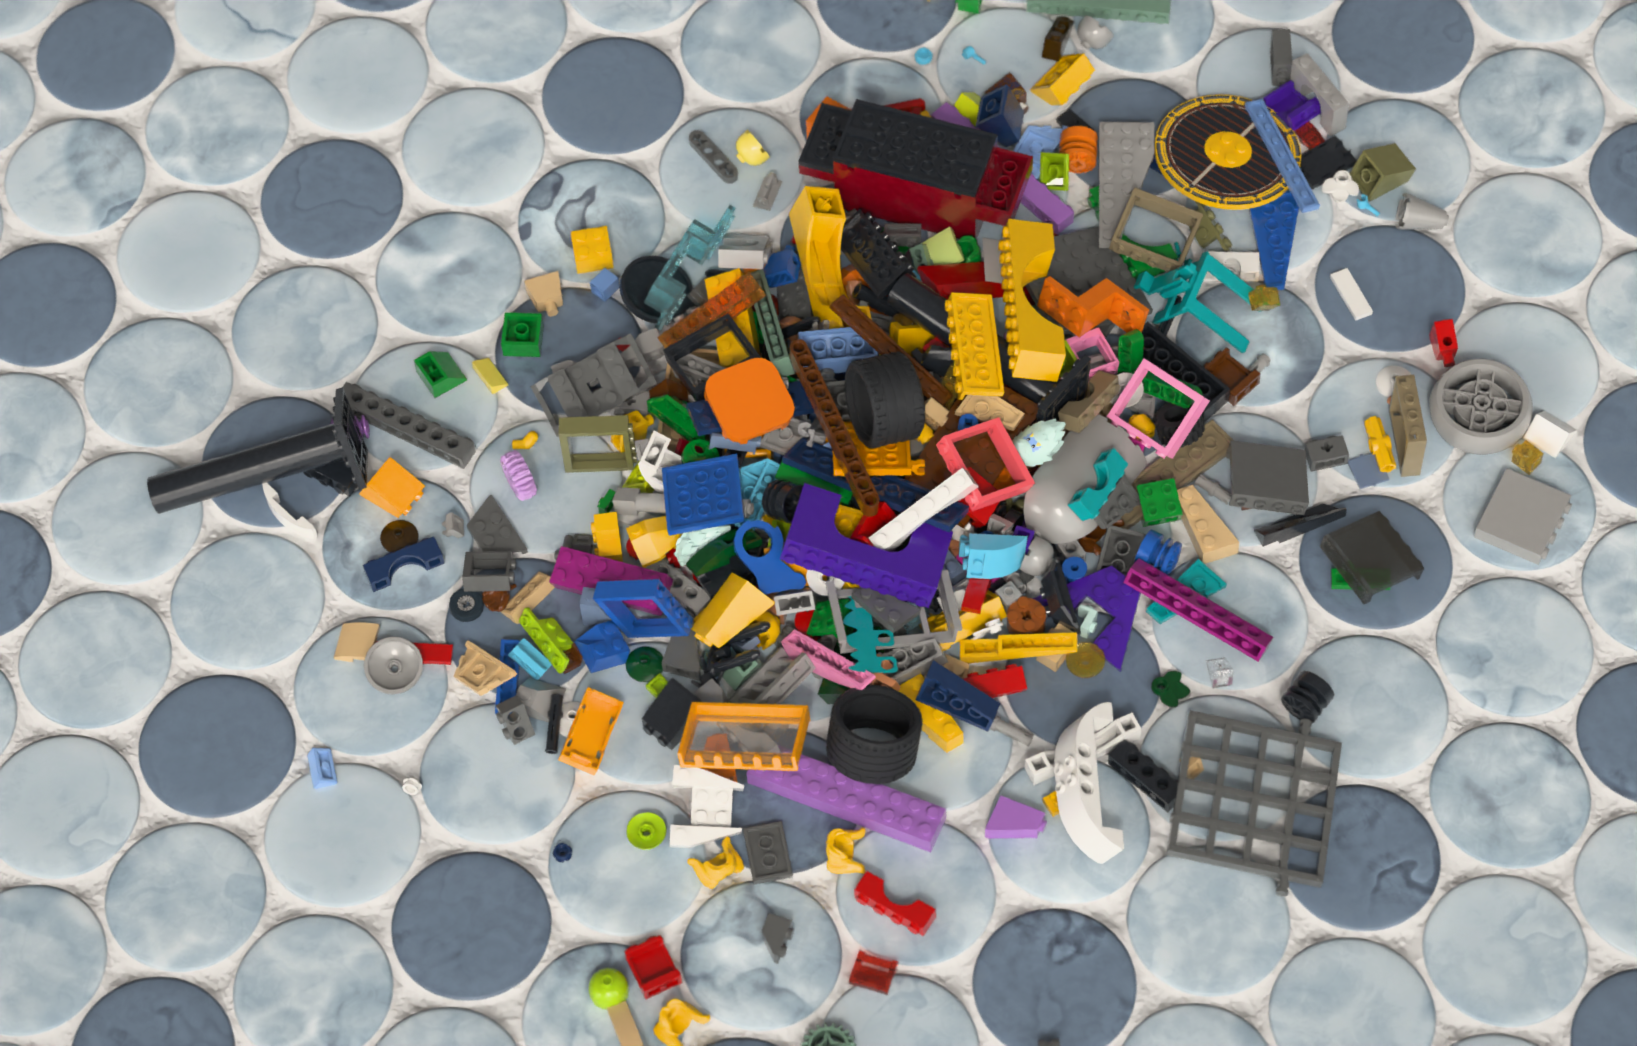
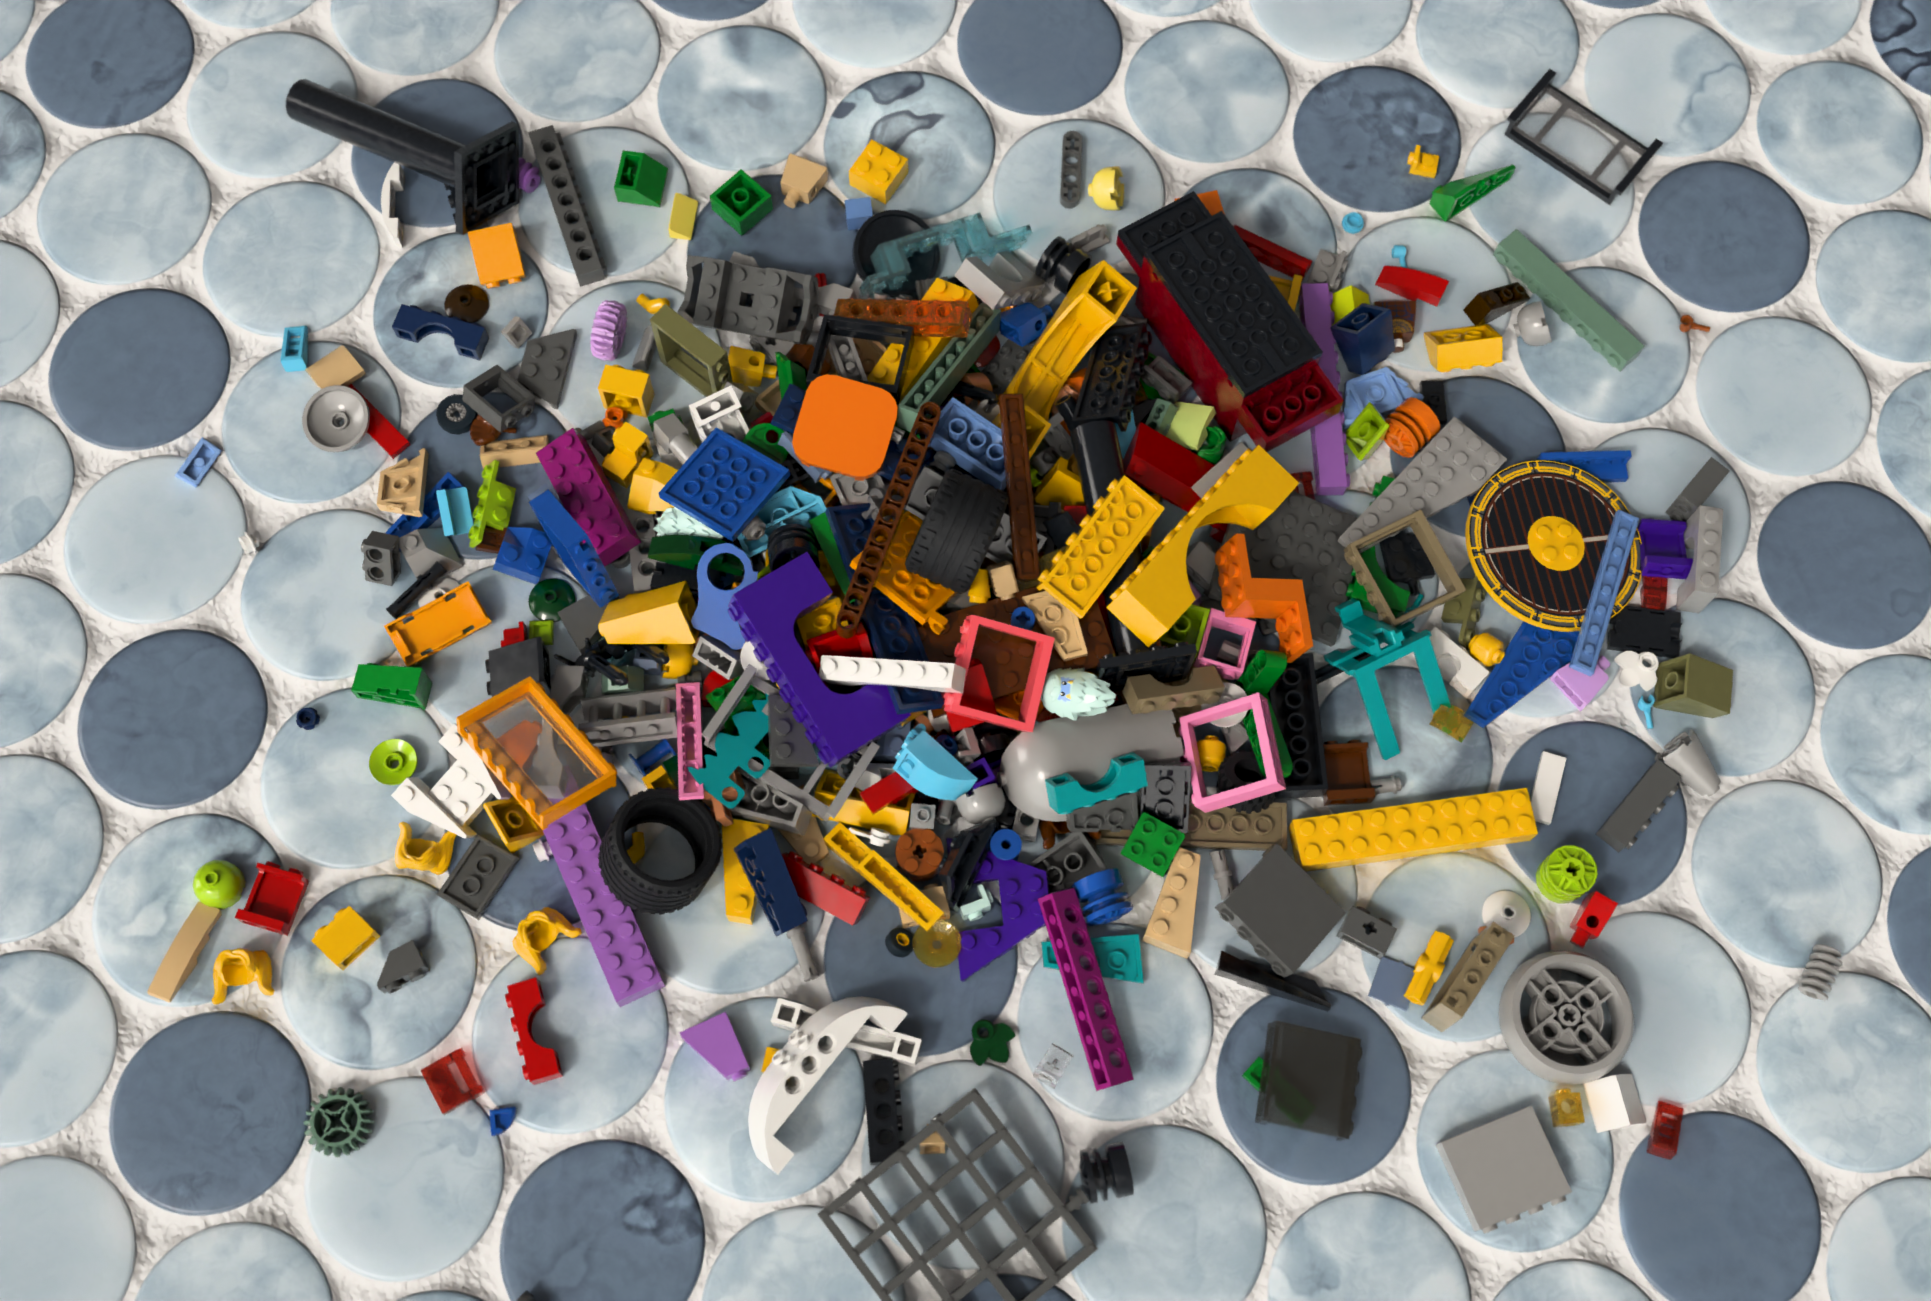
camera: 35 degrees right, 10 degrees up
(321, 658) = (299, 360): none -> medium azure slope
(548, 469) = (645, 350): none -> light grey slope
(568, 501) = (626, 390): none -> yellow brick
(573, 522) = (614, 412): none -> orange plate
(599, 787) = (392, 685): none -> green wedge
(645, 700) = (515, 635): none -> red panel
(724, 946) = (345, 937): none -> yellow slope
(758, 805) = (513, 823): none -> yellow slope
(771, 215) = (1062, 264): none -> black wheel
(793, 805) = (542, 850): none -> white plate
(808, 687) = (652, 756): none -> blue piece
(823, 710) = (658, 778): none -> yellow panel
(924, 969) = (501, 1120): none -> blue tile
(935, 95) = (1327, 269): none -> light grey bracket
(996, 65) = (1412, 284): none -> red slope
(1062, 679) = (895, 946): none -> black wheel
(1141, 464) = (1166, 793): none -> black piece
(1148, 228) = (1406, 560): none -> black plate
(1211, 84) = (1604, 465): none -> blue fence
(1244, 241) = (1486, 649): none -> yellow head
(1299, 375) = (1412, 830): none -> yellow brick
(1317, 221) = (1580, 687): none -> lavender torso
(1408, 330) = (1563, 886): none -> lime wheel
(1413, 261) = (1638, 806): none -> dark grey brick
(1593, 436) = (1661, 1145): none -> clear red slope
(1595, 271) = (1819, 972): none -> light grey piece

